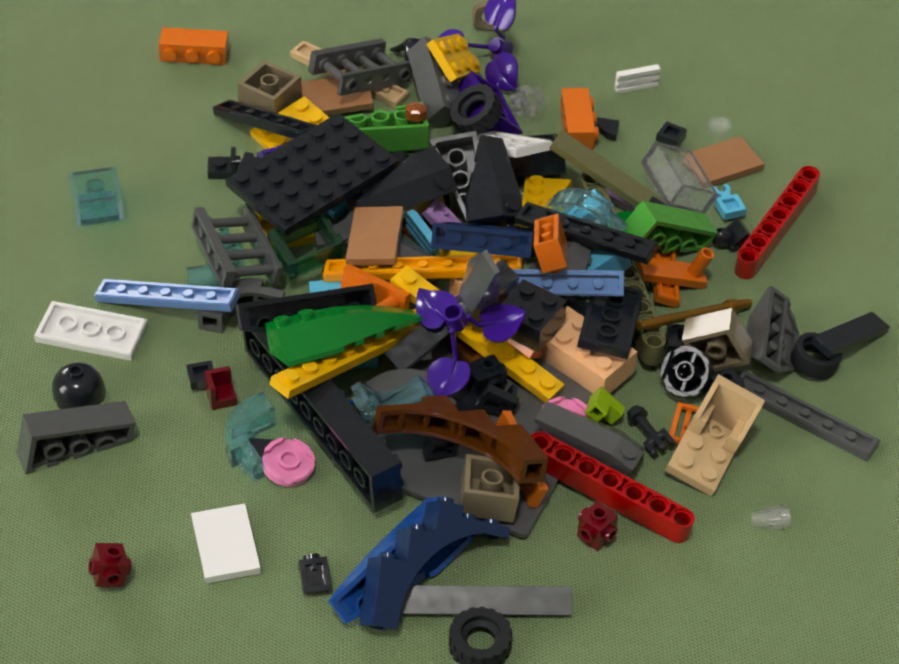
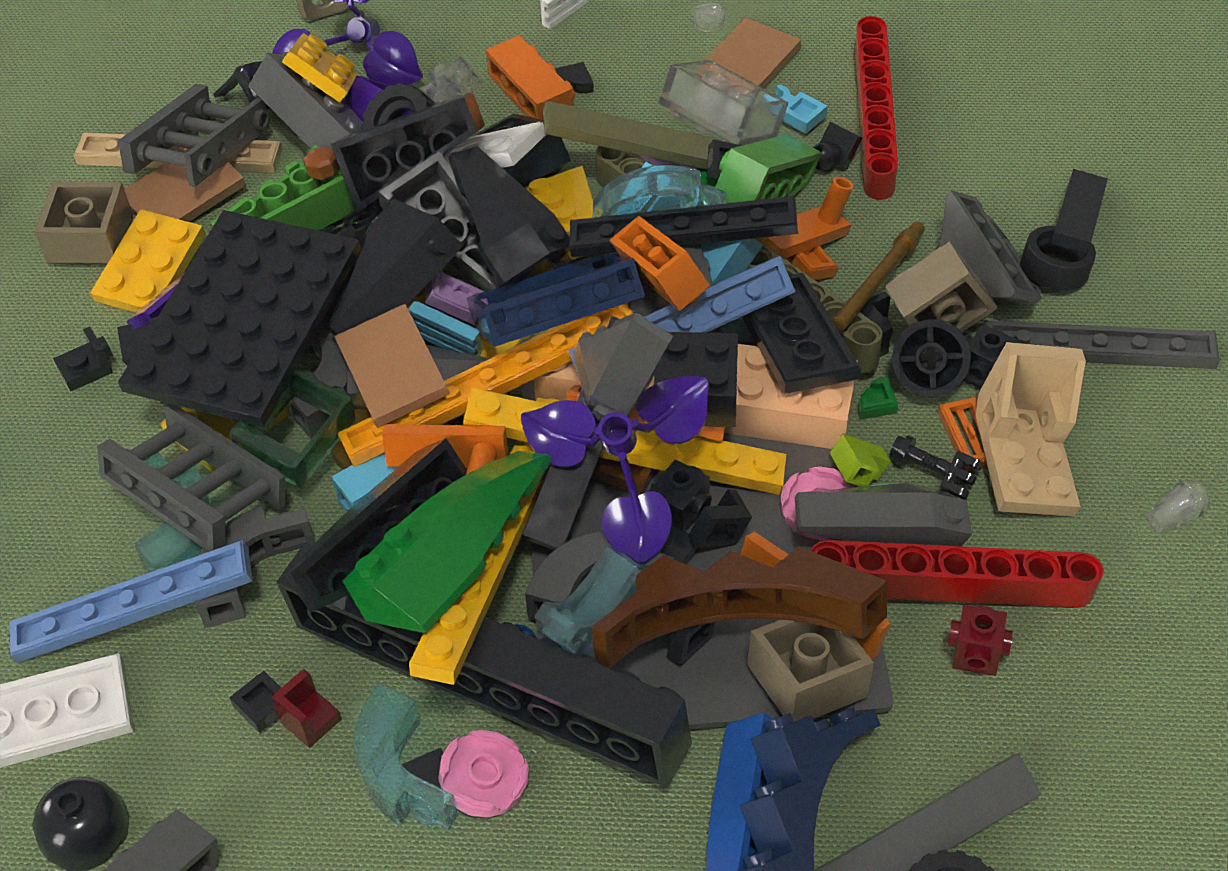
camera: 25 degrees left, 5 degrees up
(262, 118) = (107, 267): black tile -> none
(448, 119) = (391, 149): none -> black wedge
(645, 384) = (878, 400): none -> green tile
(671, 134) = (661, 51): black plate -> none

